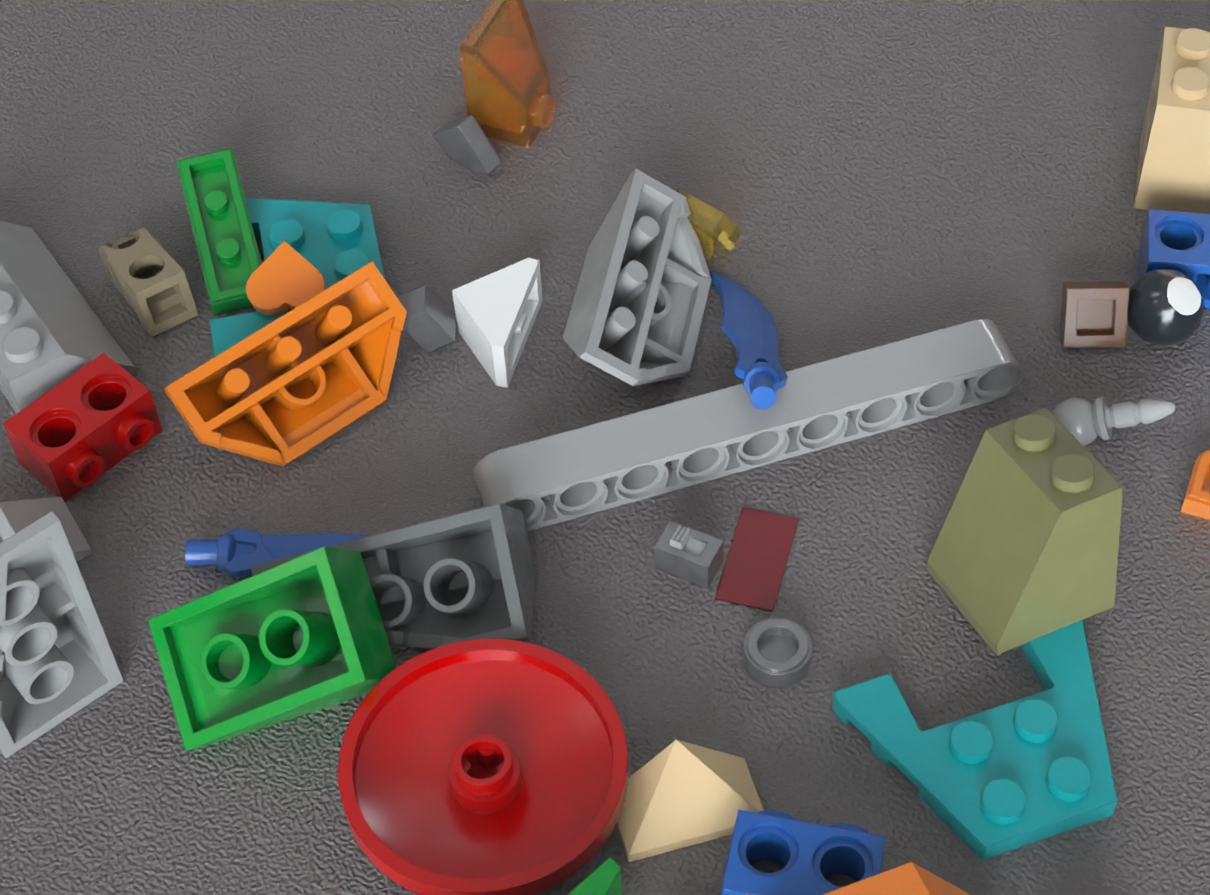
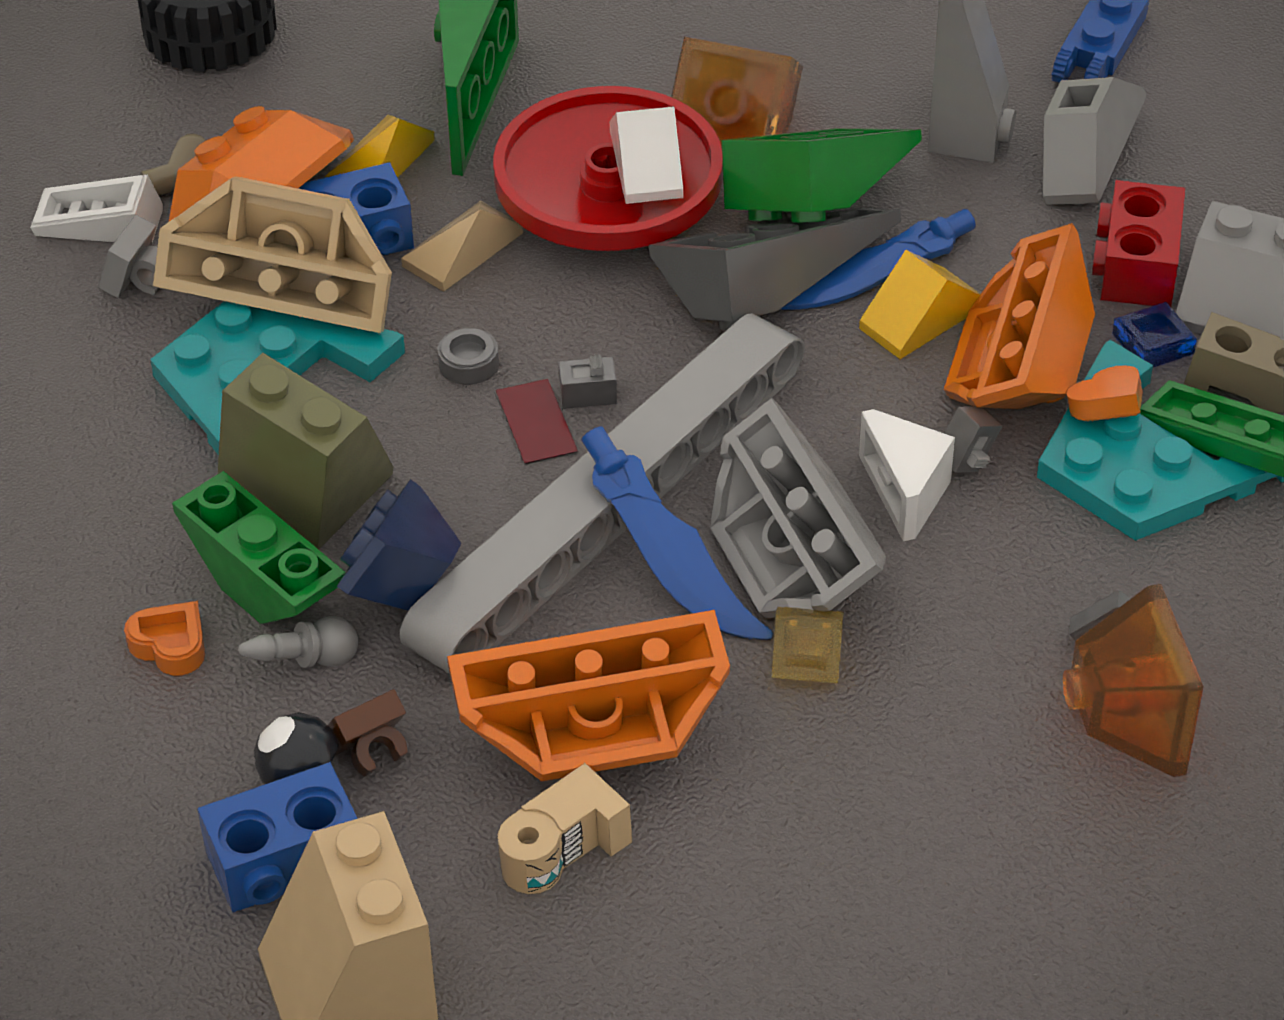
camera: 145 degrees right, 5 degrees down
(167, 357) = (1155, 334): none -> clear blue tile
(254, 800) = (737, 87): none -> clear orange slope
(322, 476) = (916, 305): none -> yellow slope
(444, 721) = (647, 154): none -> white slope
(904, 233) = (593, 694): none -> orange wedge
(931, 804) = (277, 253): none -> tan wedge
(985, 182) = (560, 829): none -> tan leg
(989, 388) = (399, 550): none -> dark blue slope
(1109, 431) = (254, 551): none -> green slope

